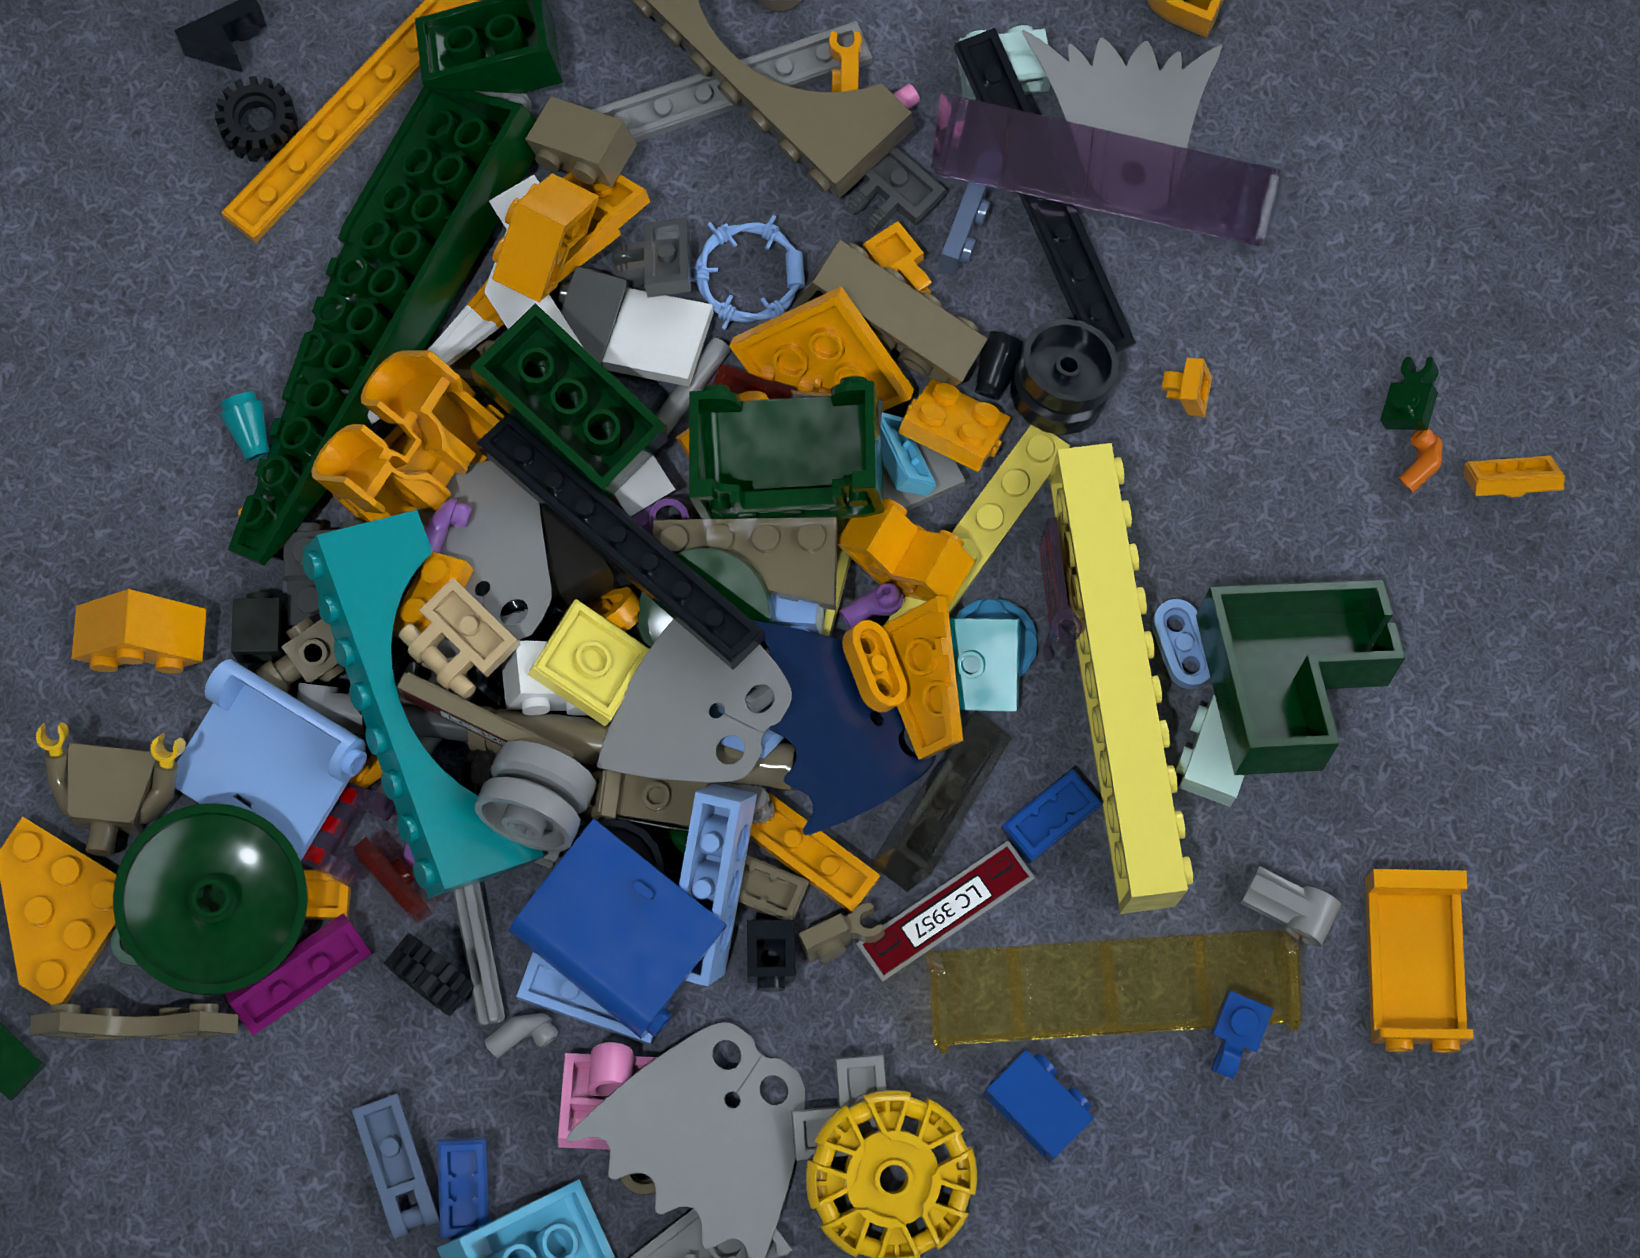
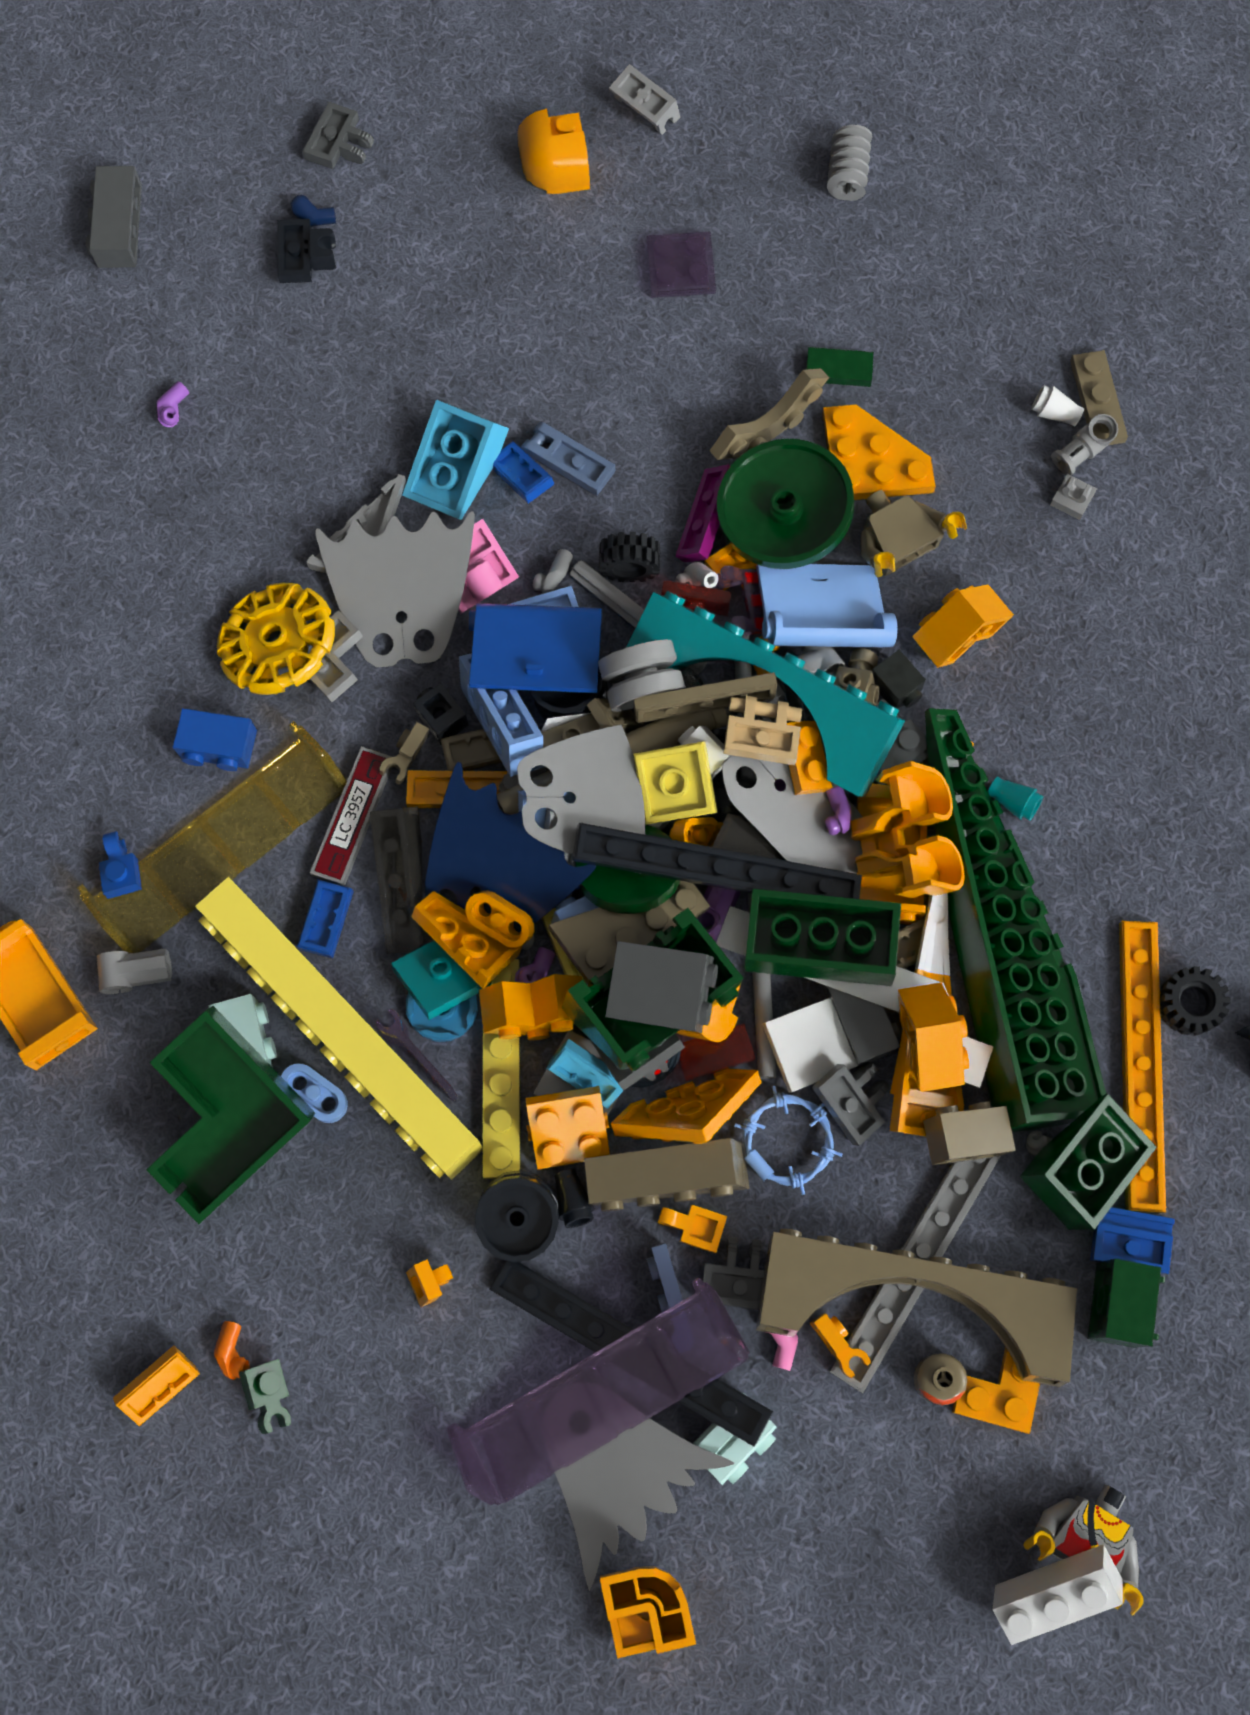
camera: 150 degrees right, 0 degrees up
(367, 907) = (698, 574): none -> white arm
(777, 436) = (661, 987): none -> dark grey brick

